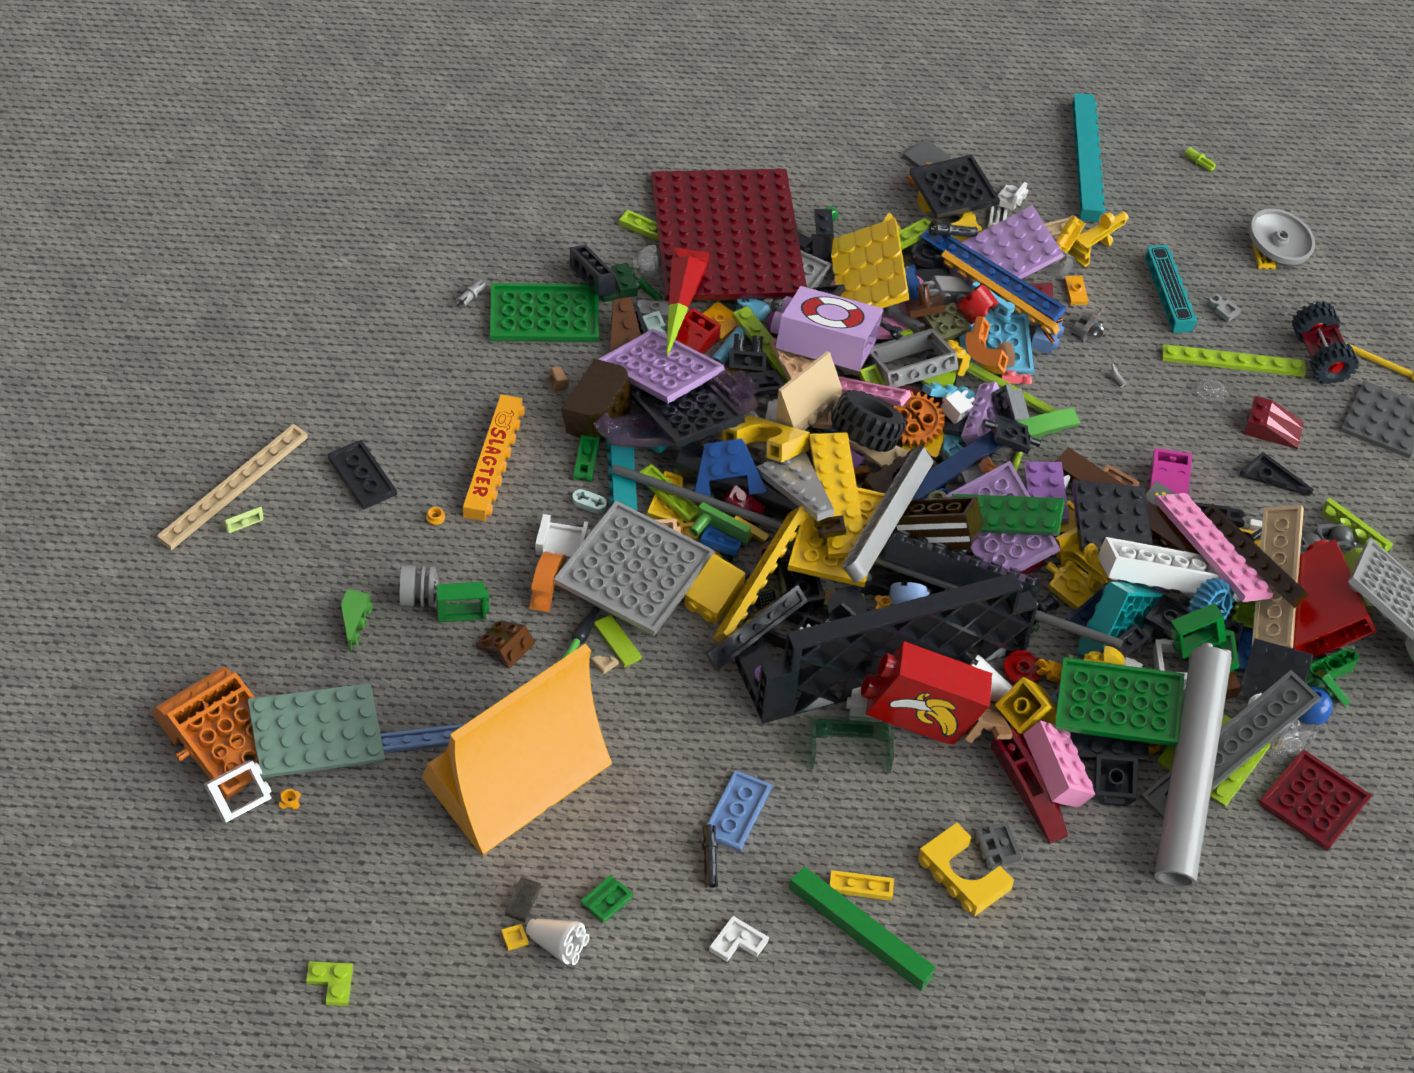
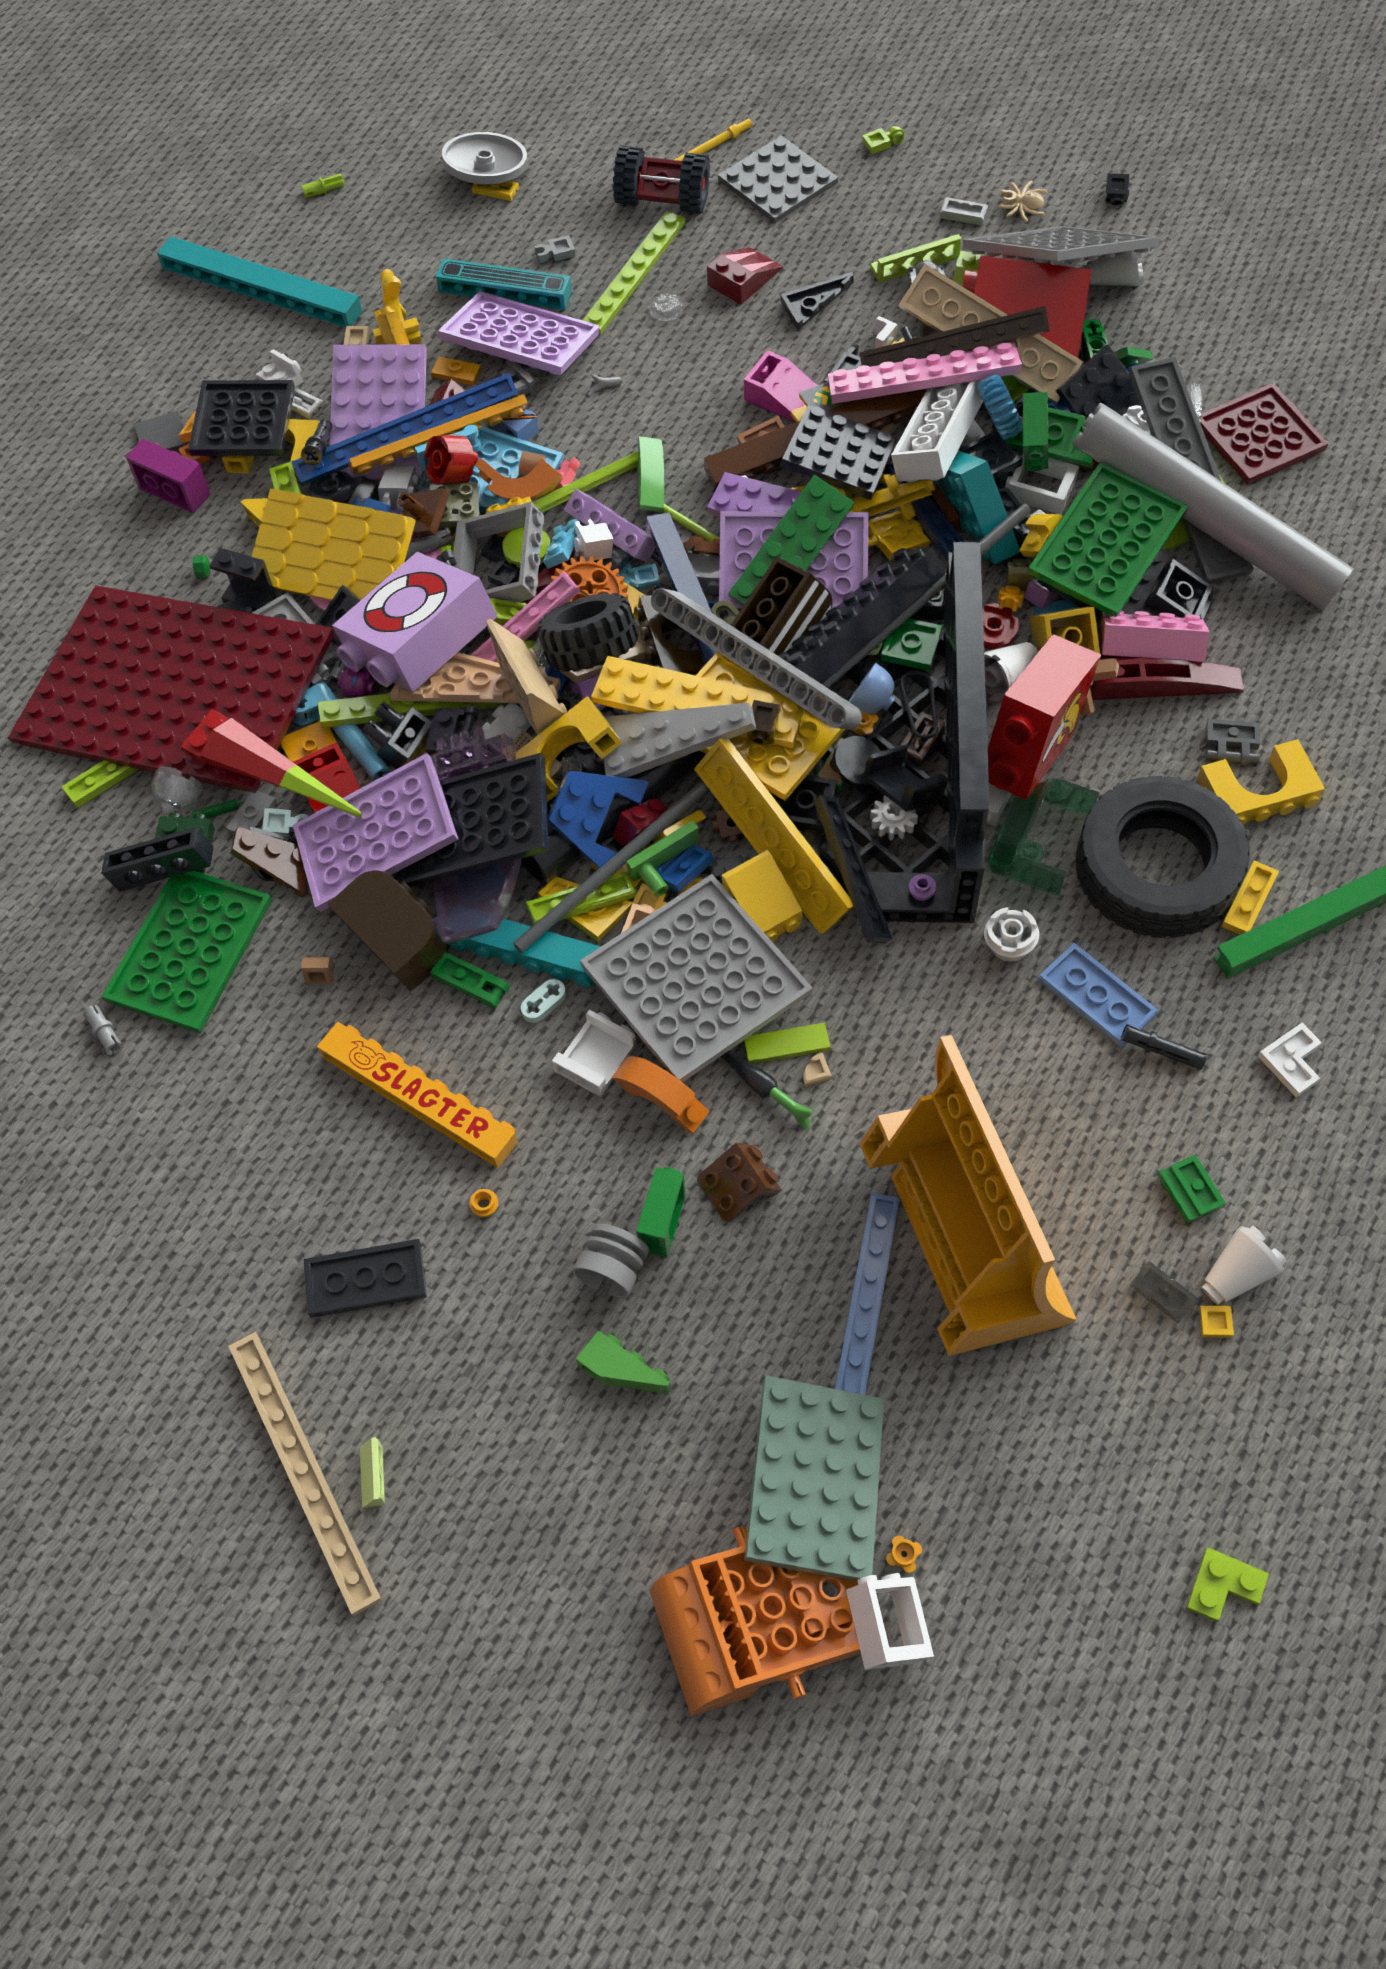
camera: 60 degrees left, 10 degrees up
(755, 739) = (1011, 934): none -> white cone
(874, 776) = (1176, 807): none -> black tyre
(888, 169) = (168, 475): none -> magenta brick
(1011, 403) = (617, 491): bracket -> none
(1011, 433) = (665, 501): black plate -> none
(1126, 310) = (519, 332): none -> lavender plate

